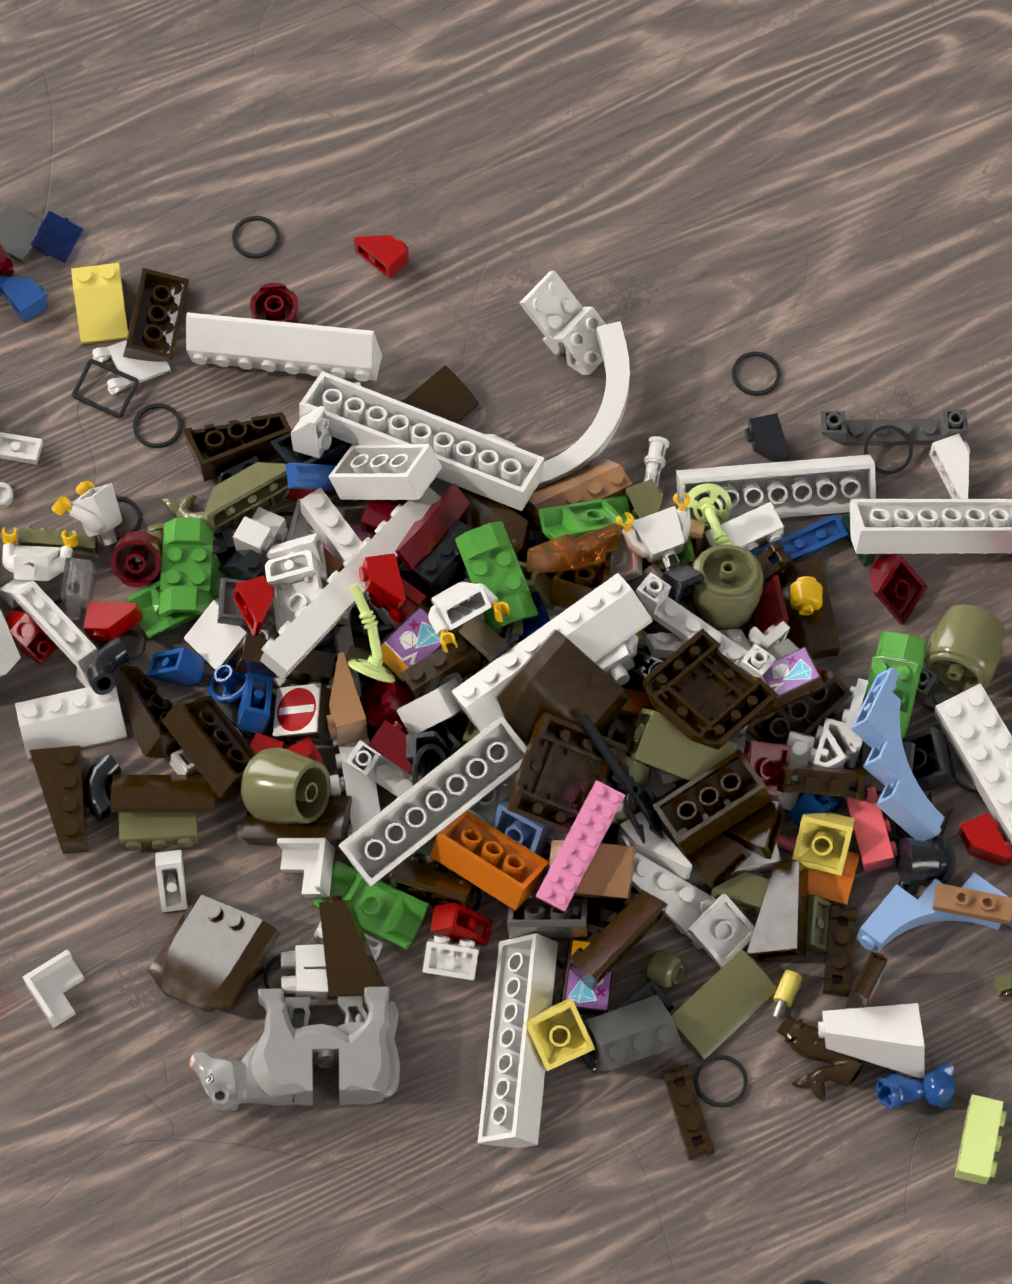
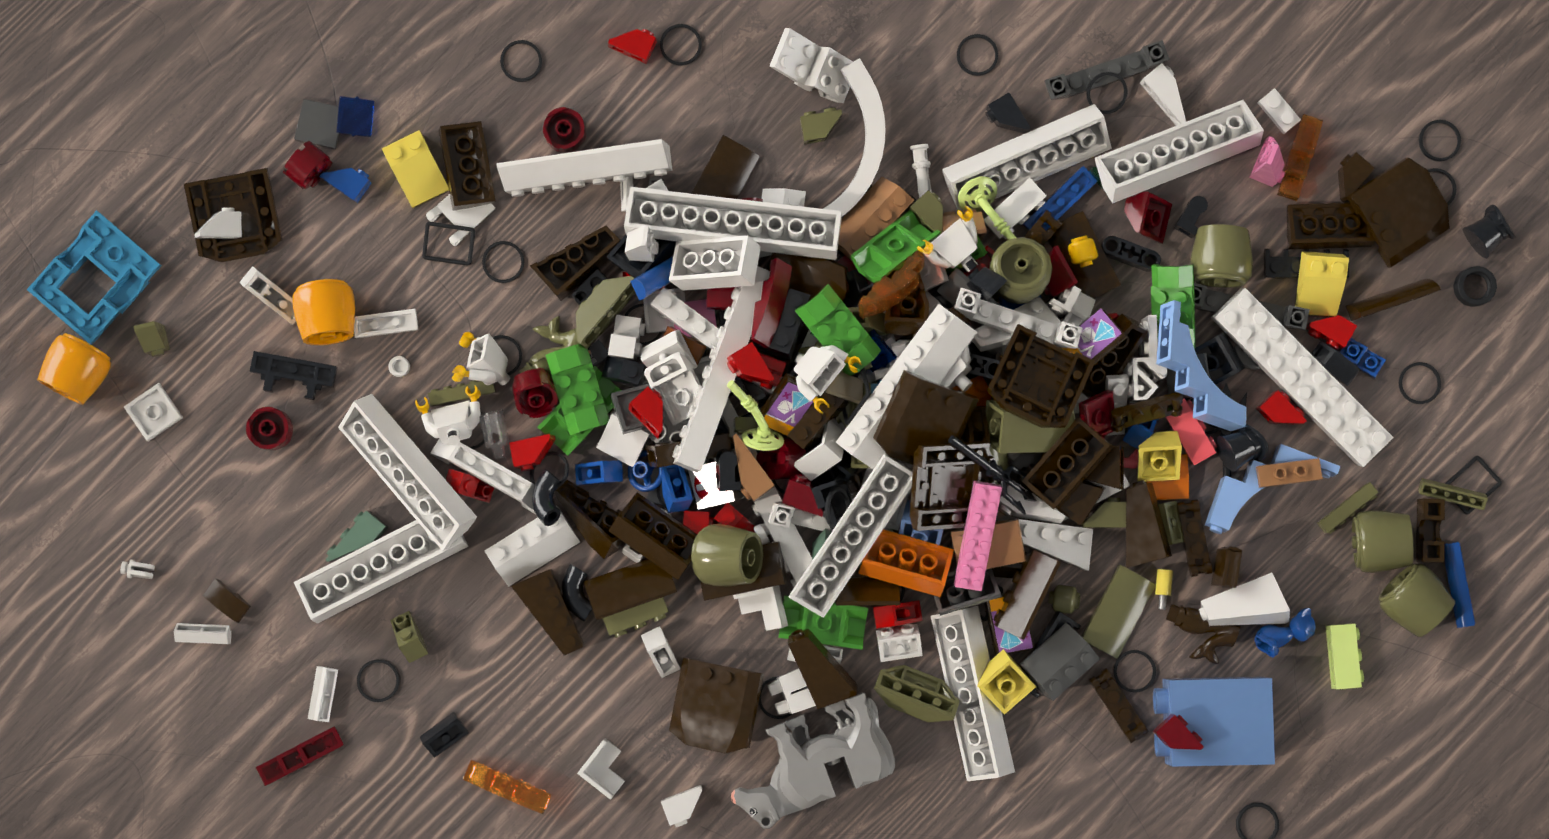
camera: 25 degrees left, 20 degrees up
(130, 1058) = (680, 806): none -> white slope
(319, 682) = (725, 471): none -> black leg
(433, 289) = (680, 26): none -> black piece
(449, 1018) = (916, 694): none -> olive wedge
(556, 389) = (818, 126): none -> olive slope
(722, 930) = (1101, 554): white plate -> none
(743, 1148) = (1176, 735): none -> dark red slope
(798, 1160) = (1227, 714): none -> medium blue brick
(861, 613) = (1136, 250): none -> black beam
(950, 595) = (1189, 216): none -> black leg

